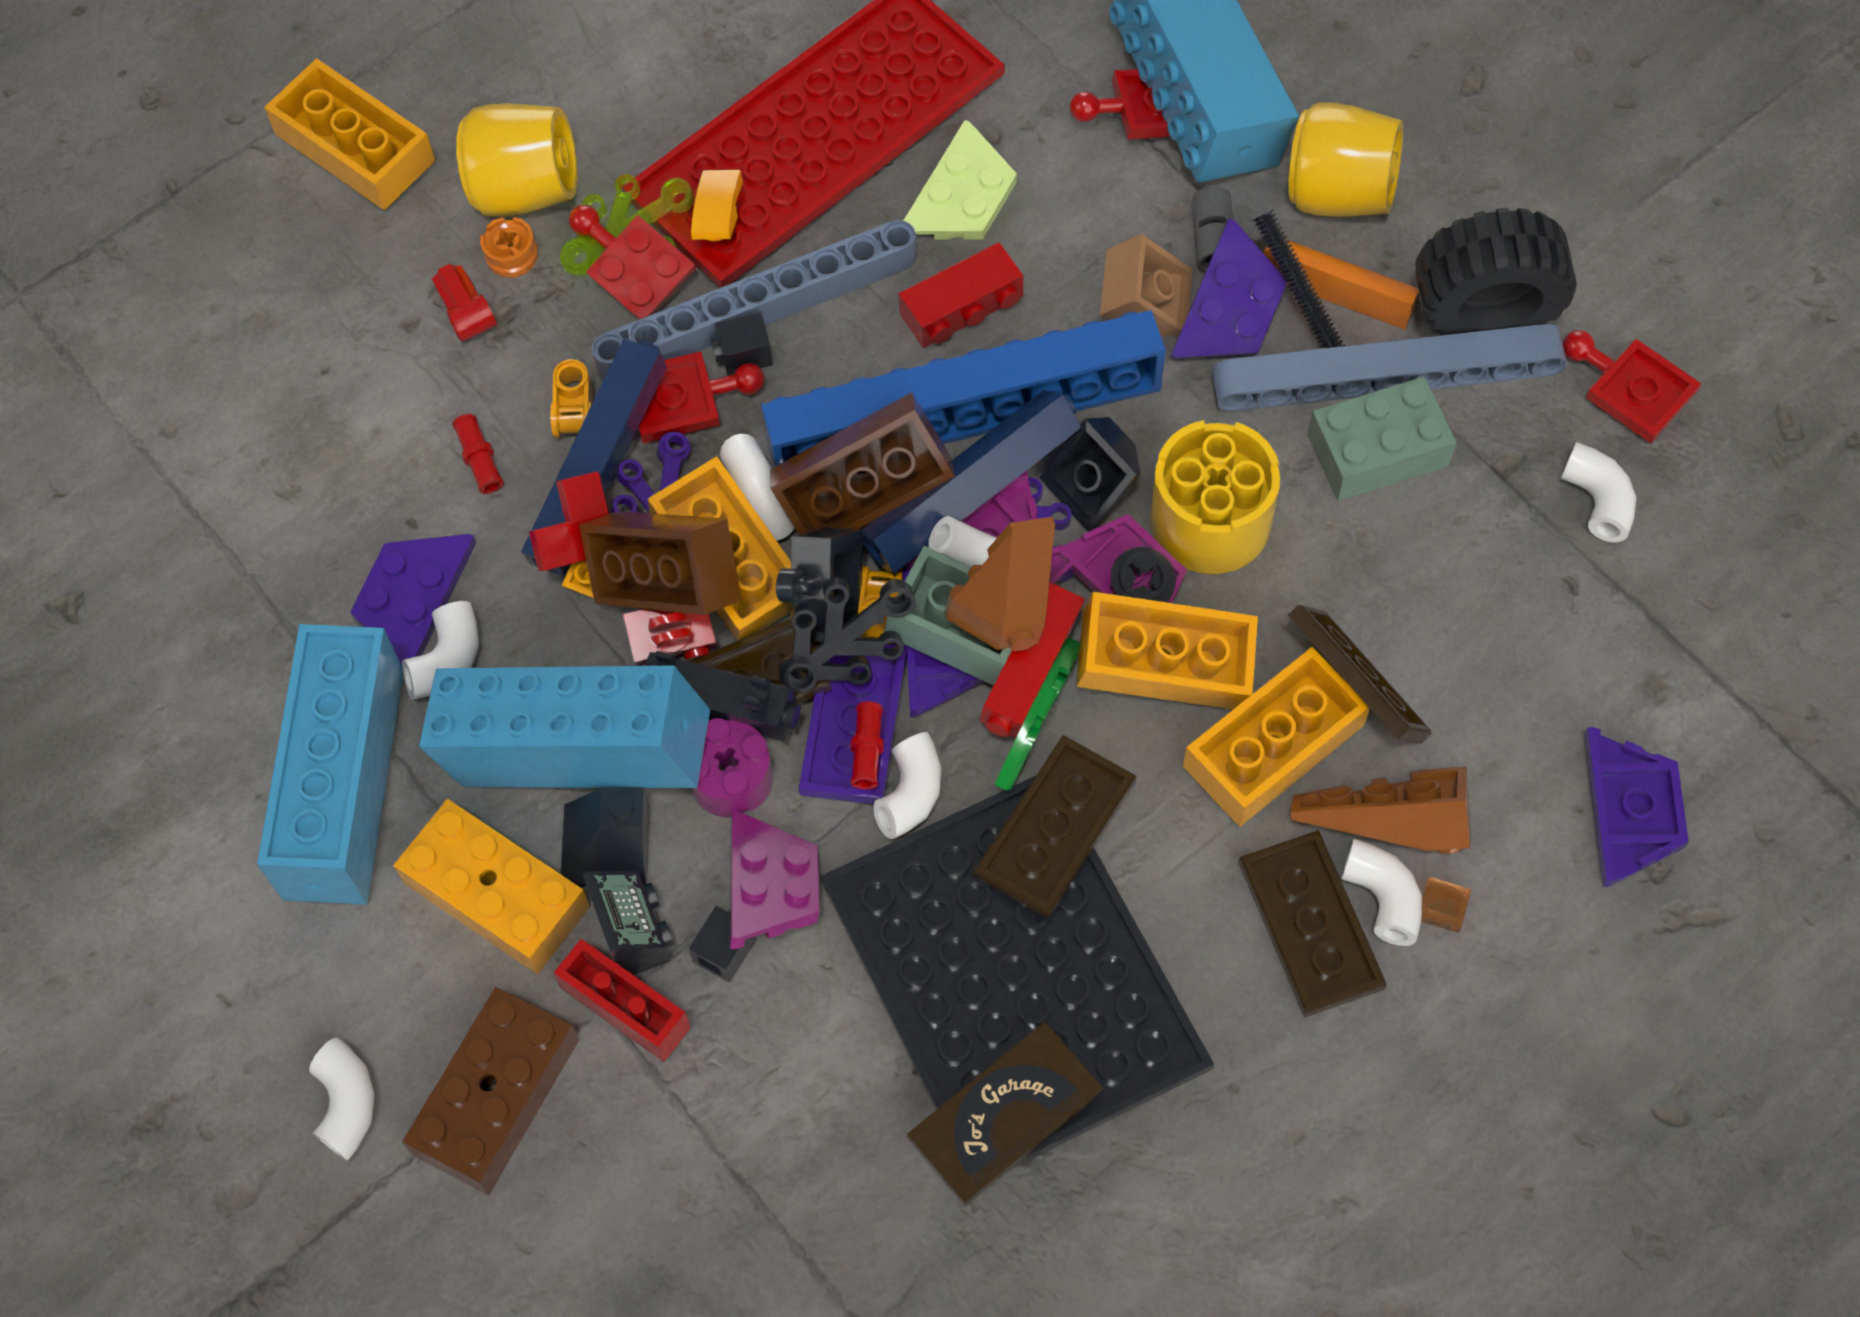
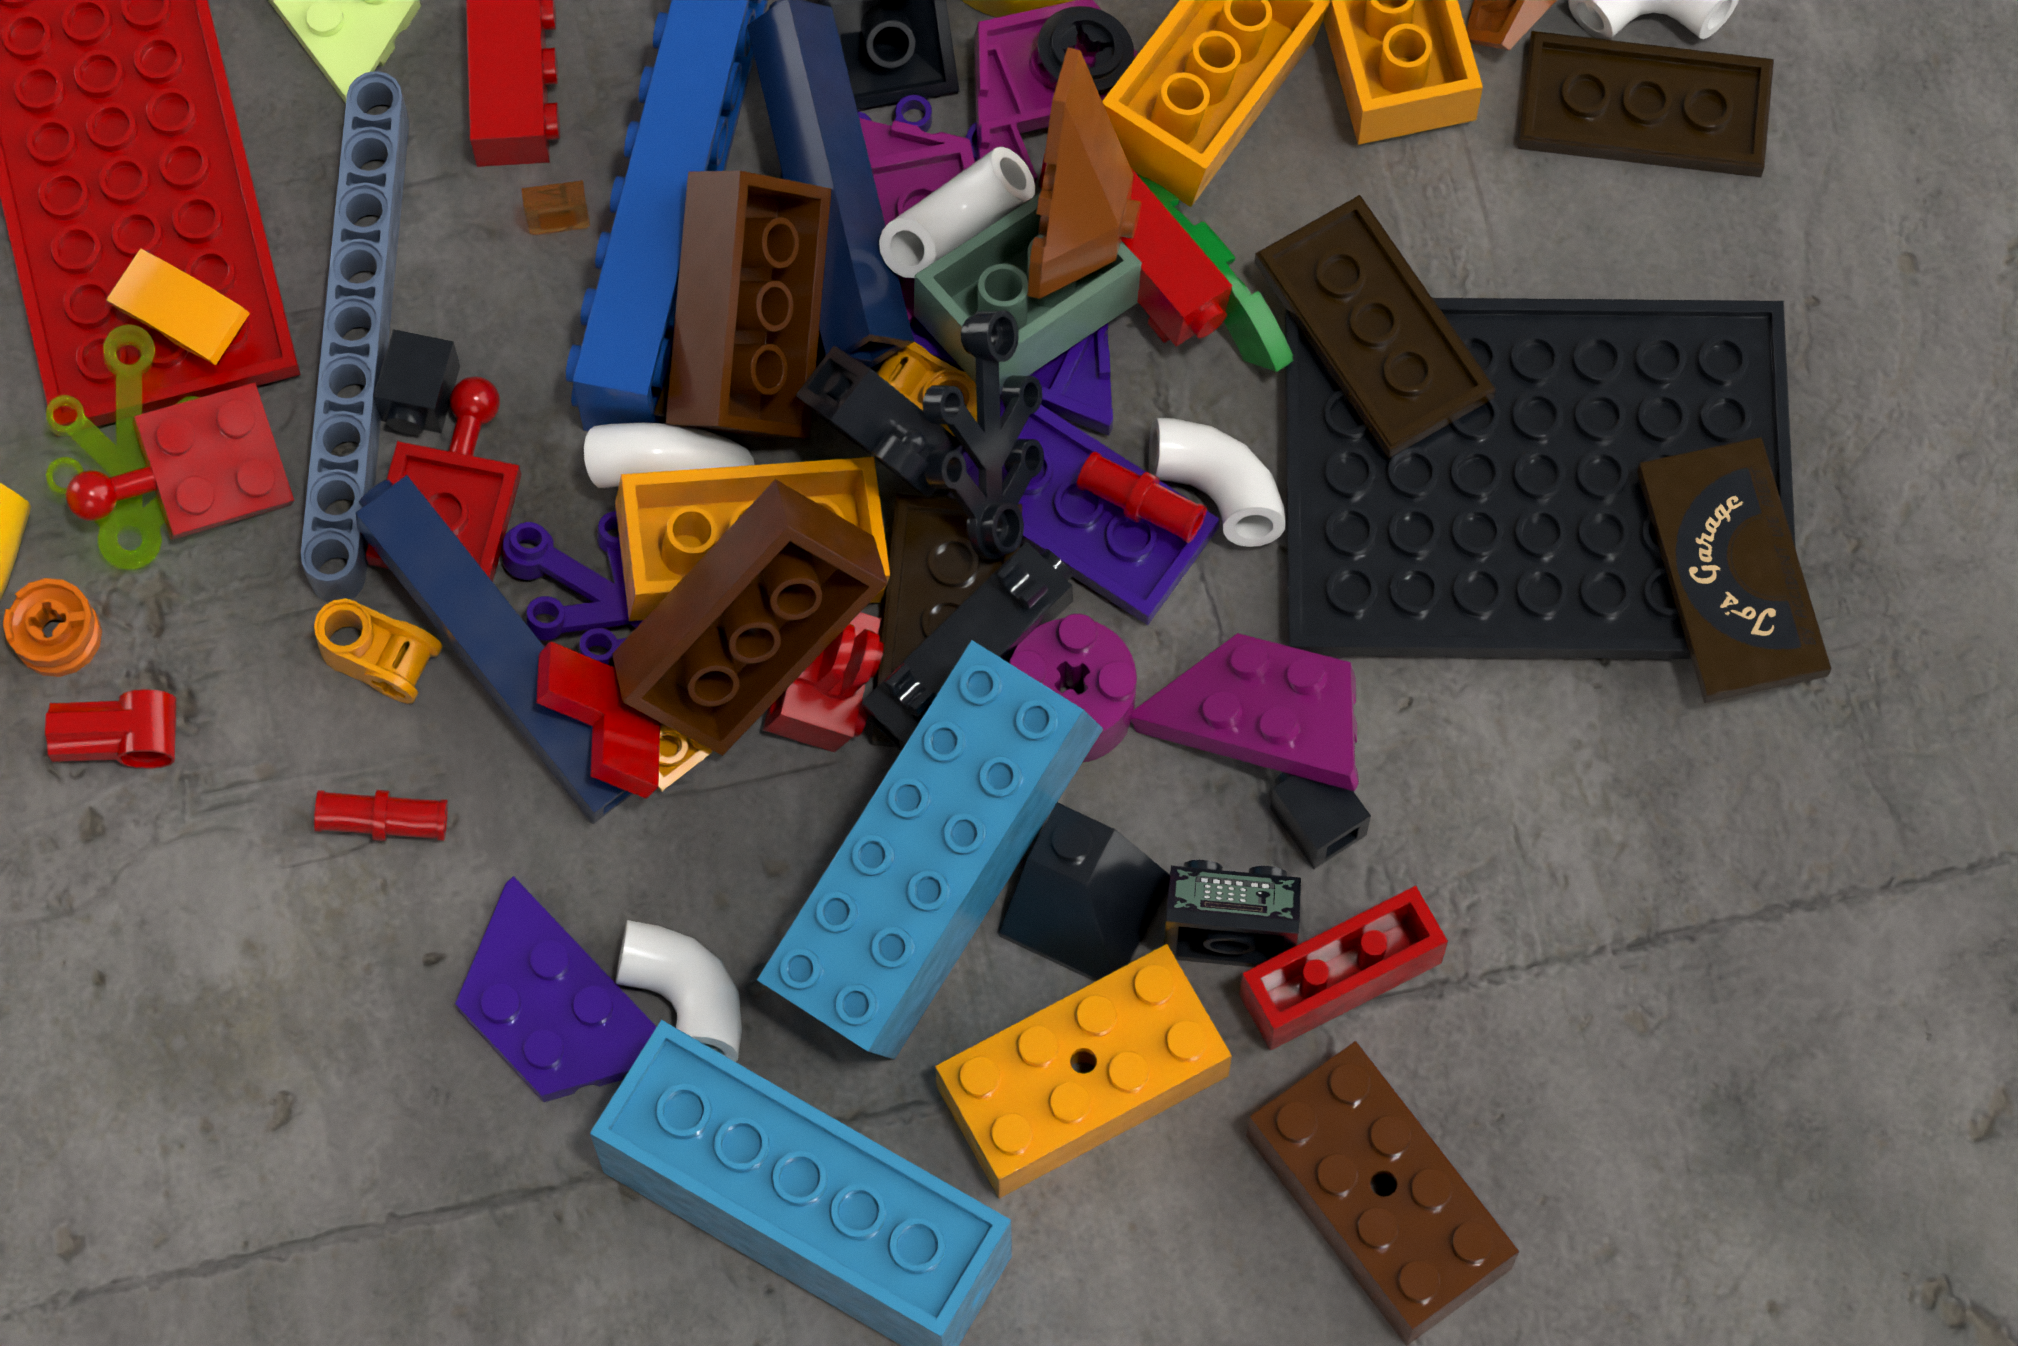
camera: 65 degrees left, 5 degrees up
(885, 355) = (556, 207): none -> clear orange tile

